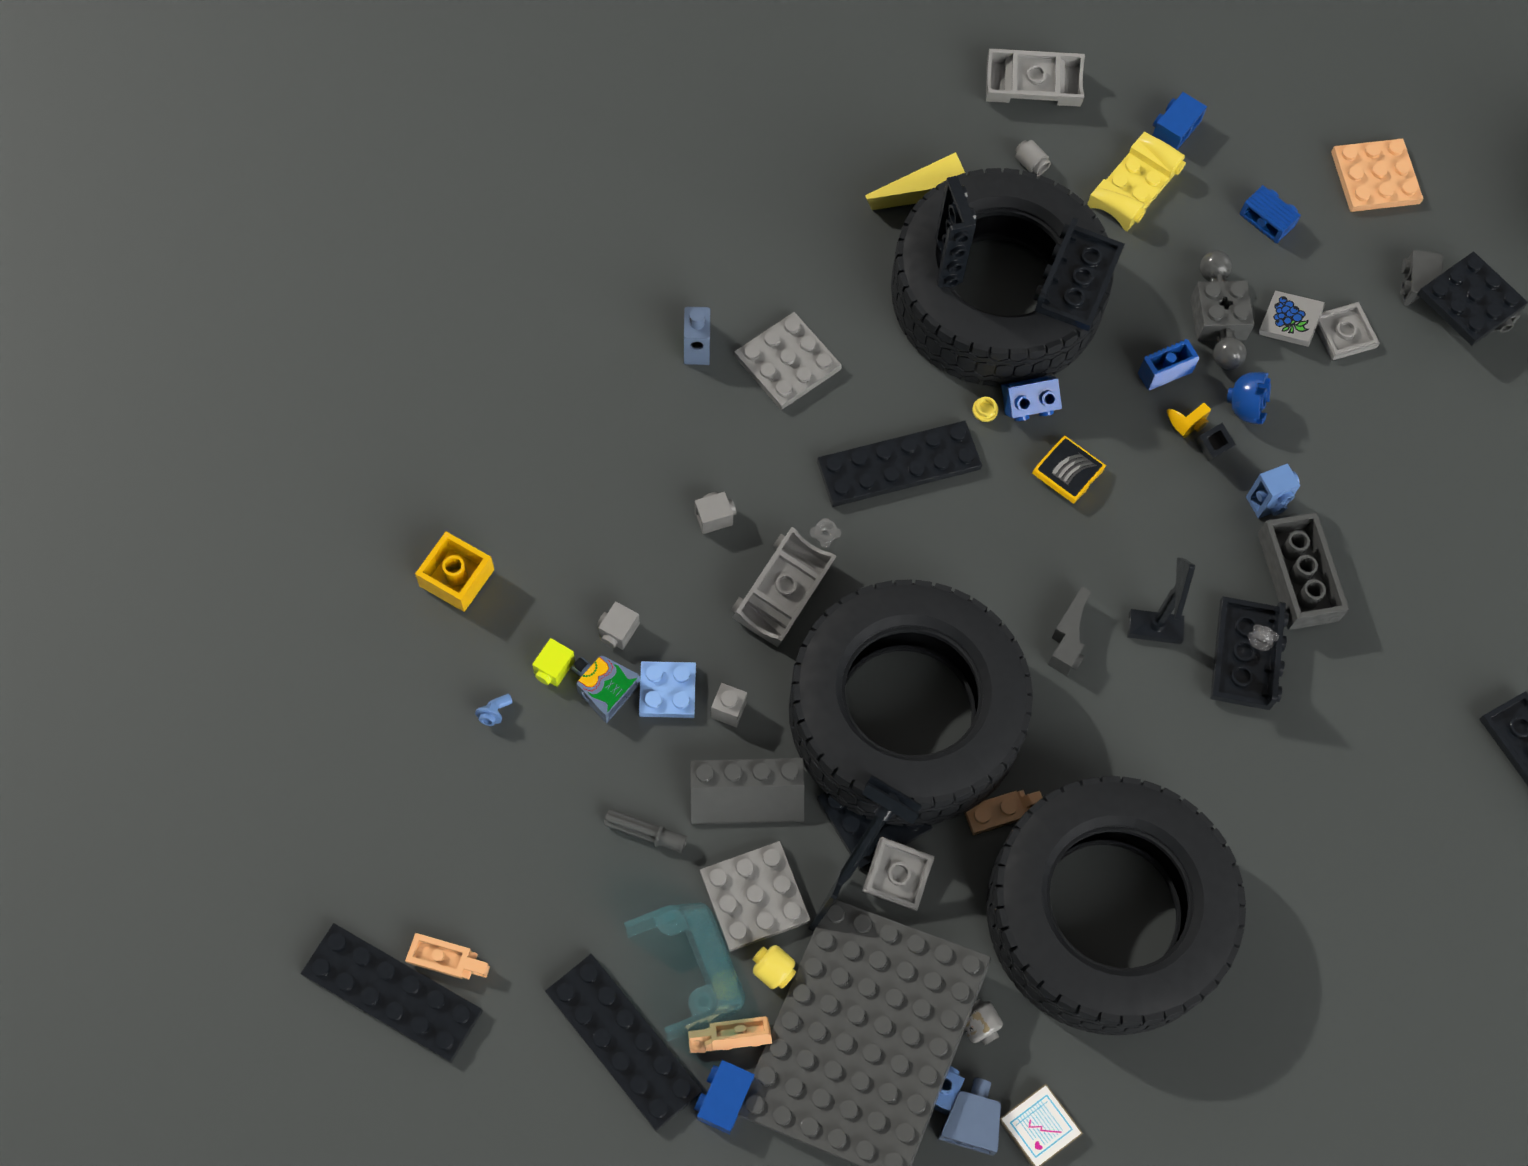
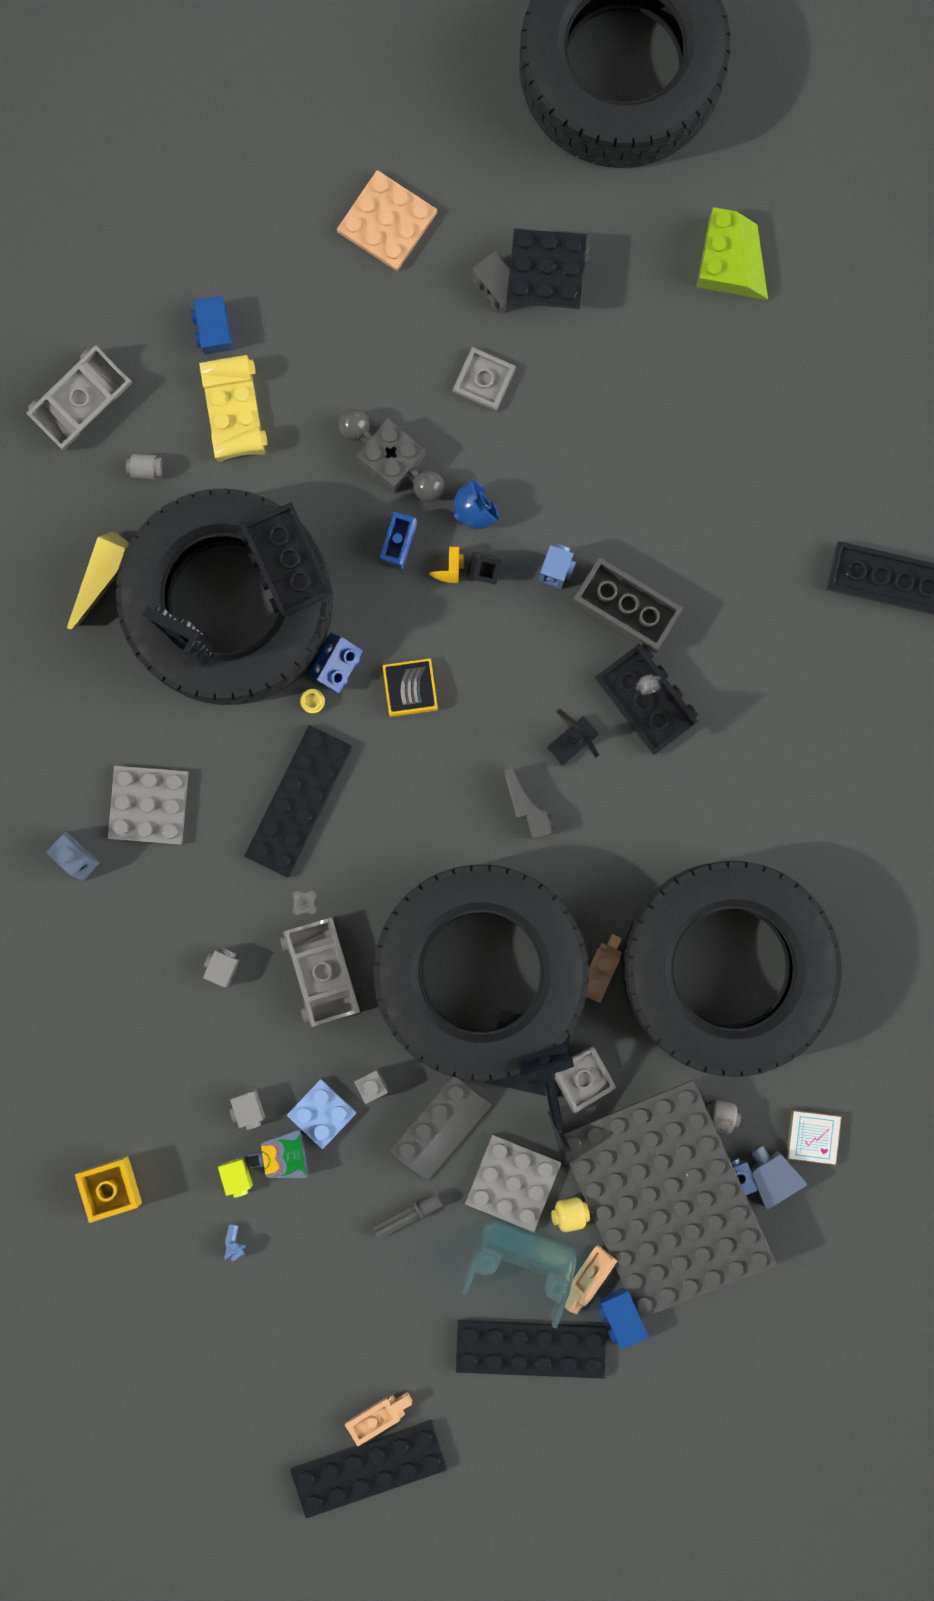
camera: 40 degrees left, 20 degrees up
(1270, 213) = (348, 337): blue brick -> none
(1291, 318) = (441, 410): light grey tile -> none

